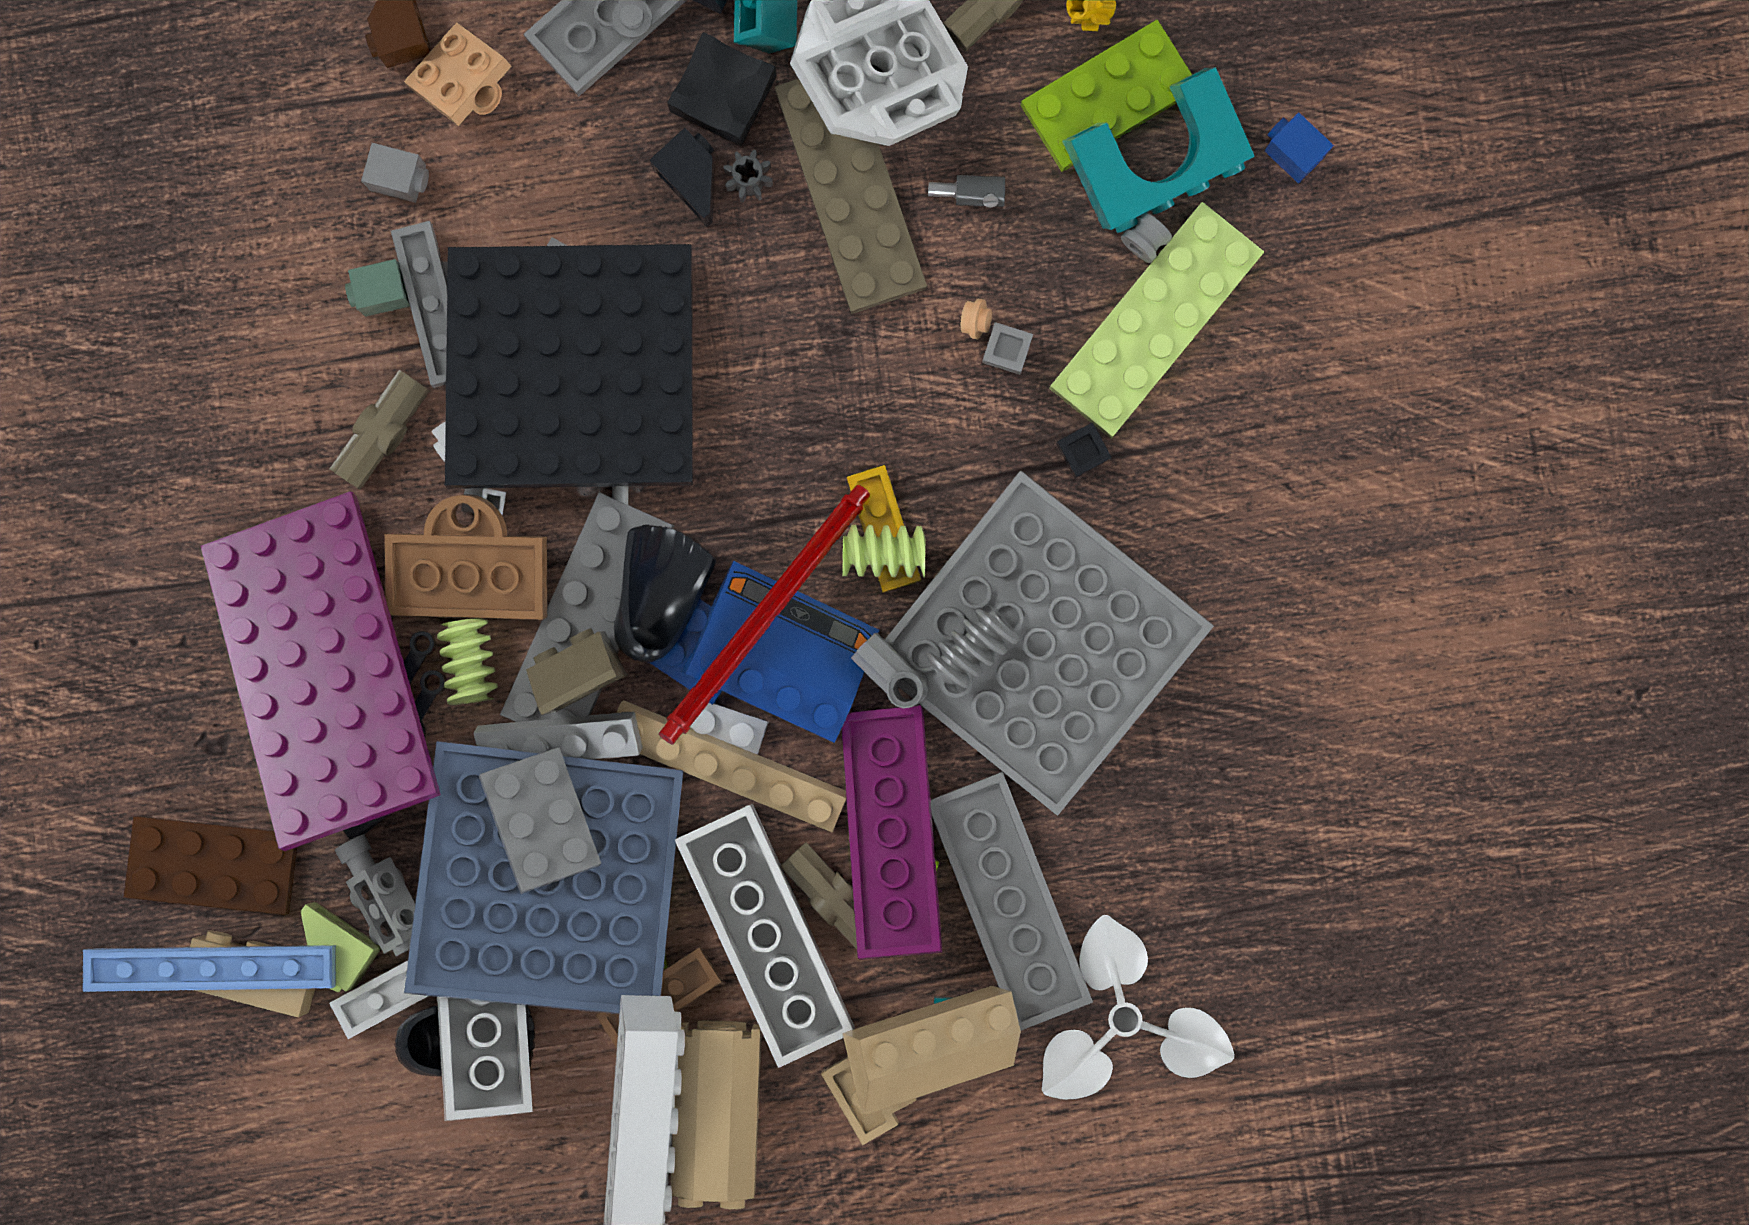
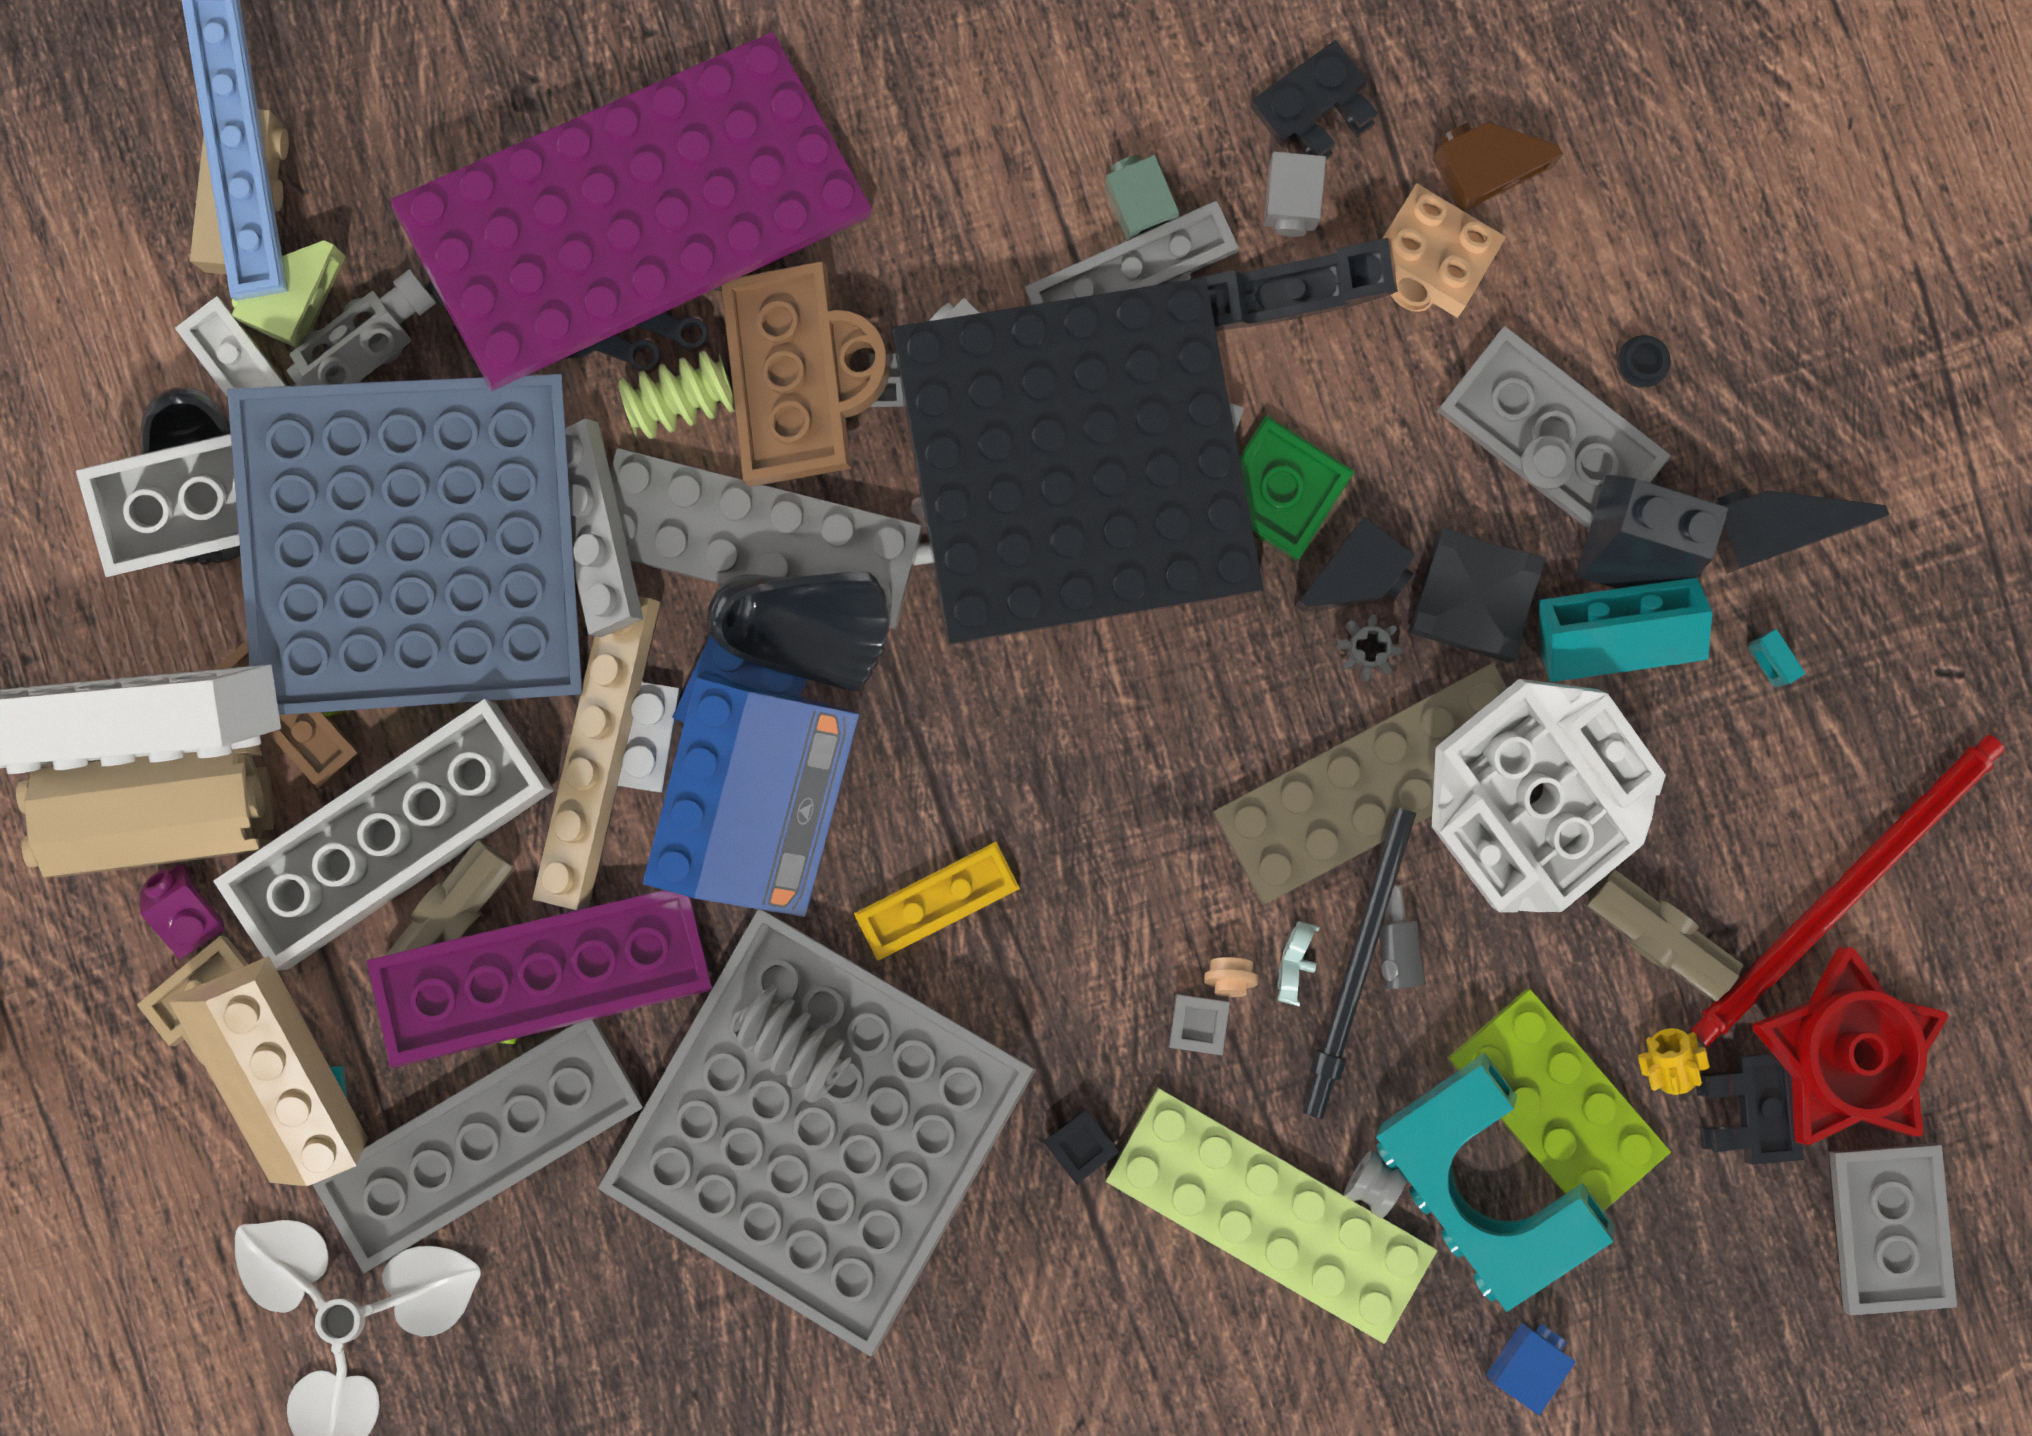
camera: 75 degrees right, 0 degrees up
(209, 866) = (368, 113): reddish brown plate -> none
(321, 150) = (1309, 94): none -> black plate
(379, 429) = (957, 231): dark tan piece -> none
(468, 175) = (1303, 287): none -> black slope
(539, 820) = (480, 523): light grey plate -> none
(575, 671) = (678, 534): dark tan slope -> none
(617, 214) = (1289, 486): none -> green tile
(763, 615) = (790, 766): red piece -> none
(796, 1103) = (178, 911): none -> magenta bracket
(884, 550) = (902, 907): yellowish green piece -> none
(888, 669) = (748, 936): light grey piece -> none
(978, 276) = (1292, 961): none -> light aqua piece
(1051, 257) = (1329, 1062): none -> black bar

